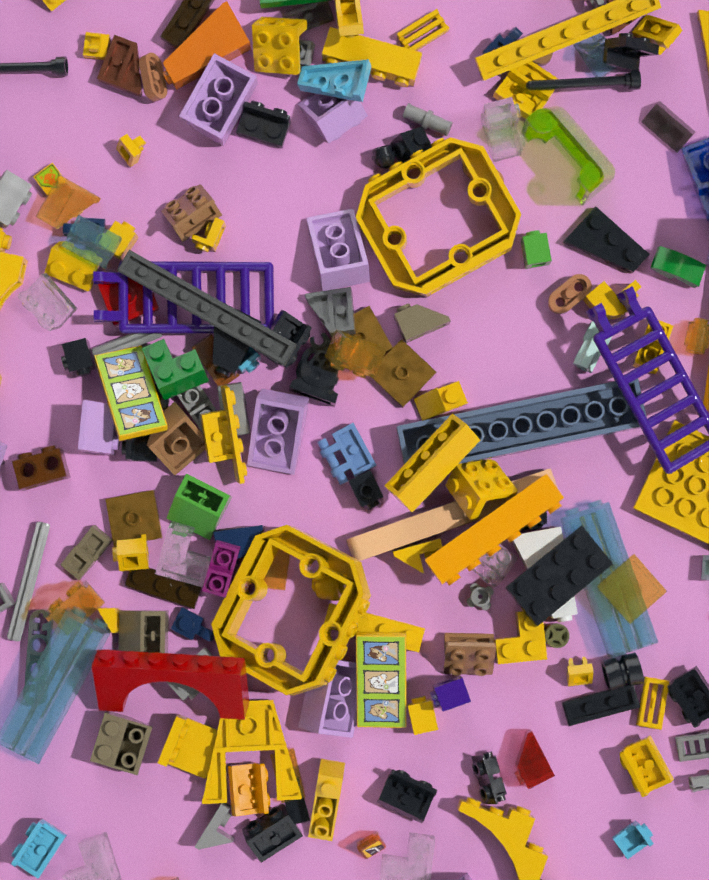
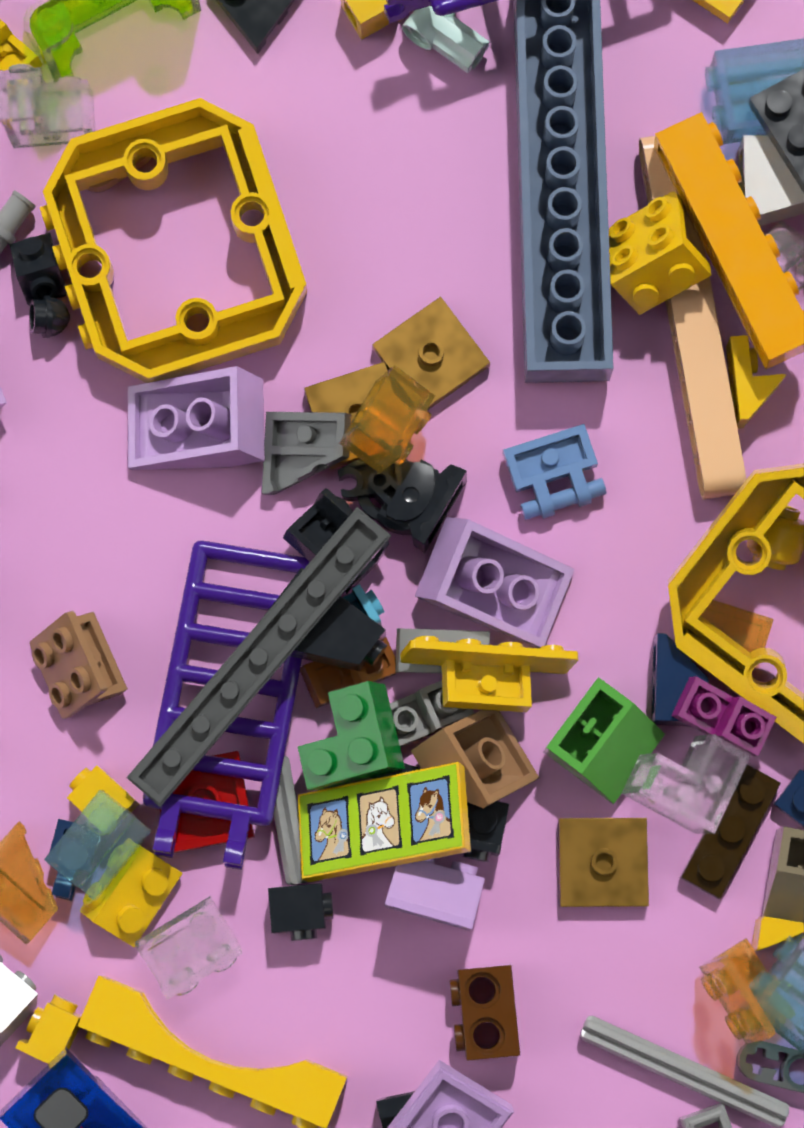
camera: 80 degrees left, 5 degrees down
(86, 552) = (650, 957): dark tan slope -> none
(131, 554) = (669, 873): yellow brick -> none
(214, 234) = (122, 630): yellow bracket -> none
(366, 490) = (624, 448): black brick -> none
(418, 321) = (348, 310): dark tan slope -> none
(432, 463) = (606, 315): yellow brick -> none
(440, 401) = (491, 300): yellow slope -> none
(535, 249) = (263, 94): bright green brick -> none
(569, 294) = (350, 57): nougat plate -> none

